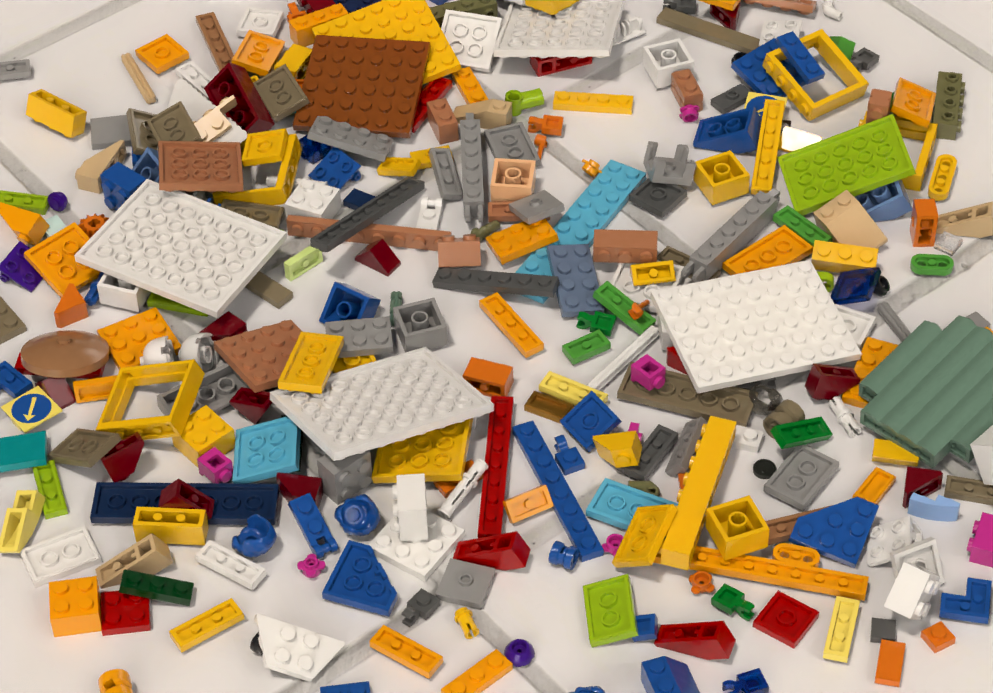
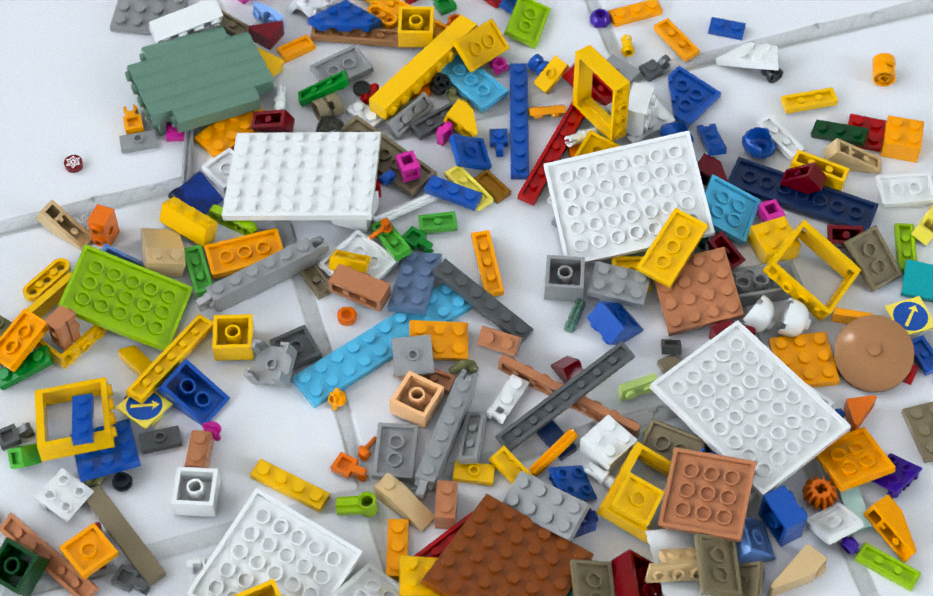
camera: 160 degrees left, 10 degrees up
(75, 203) = (834, 523): none -> white plate
(282, 307) = (671, 346): none -> dark grey tile
(311, 566) = (721, 120): dark pink plate -> none
(362, 184) = (553, 452): none -> light orange axle
(488, 468) = (589, 61): none -> yellow window
(489, 377) = (529, 219): orange brick -> none
(541, 543) = (551, 74): none -> yellow plate
(584, 371) = (453, 192): none -> blue plate
(665, 357) = (387, 177): none -> blue tile
(668, 487) = (440, 80): none -> black wheel
(745, 458) = (373, 89): none -> red arm
(932, 264) = (124, 201): bright green plate -> none

